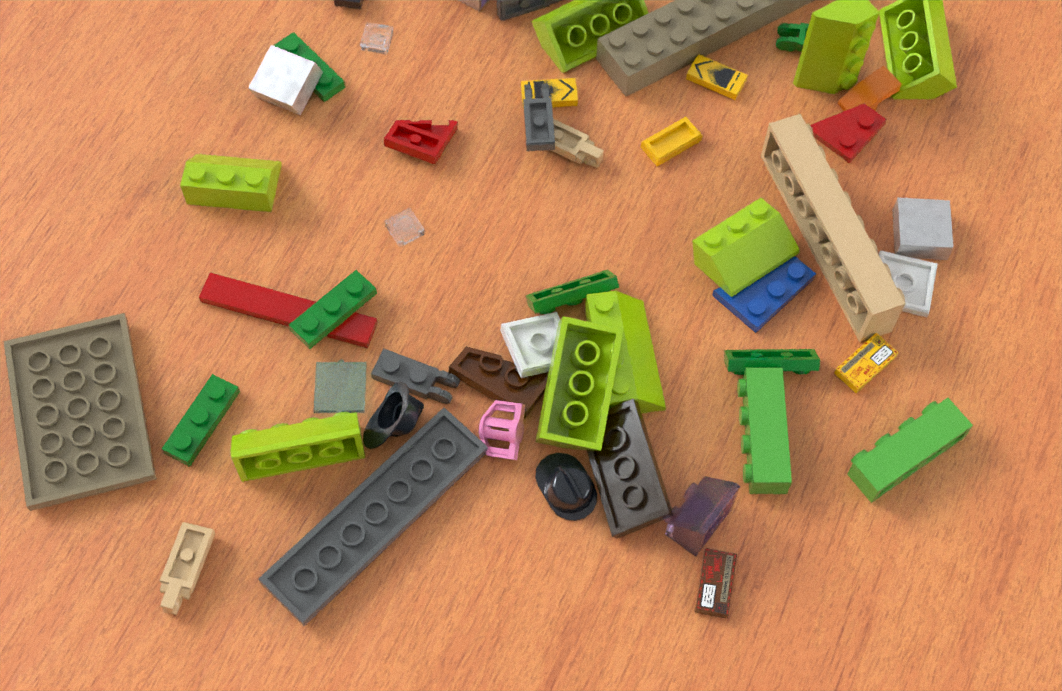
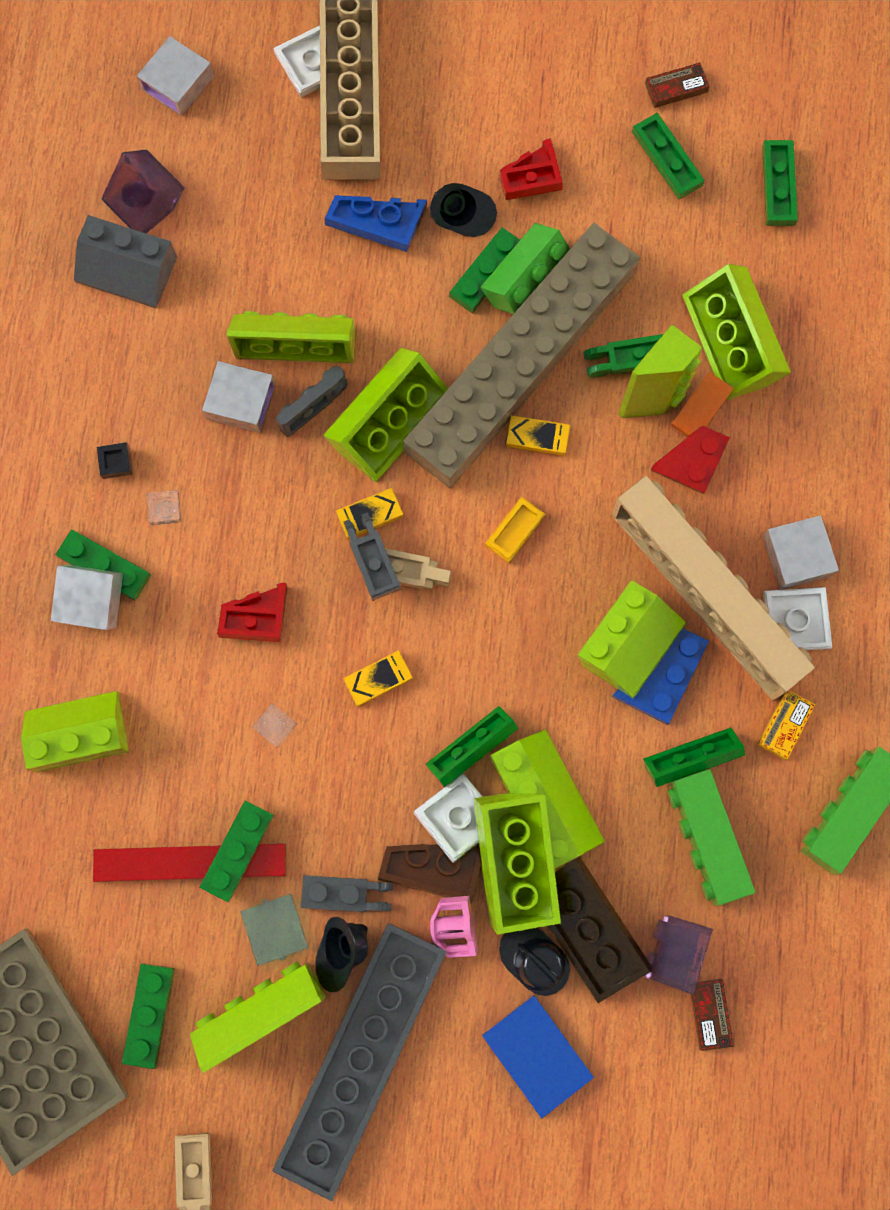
camera: 15 degrees left, 15 degrees up
(509, 218) = (378, 678): none -> yellow tile
(539, 566) = (537, 1056): none -> blue tile

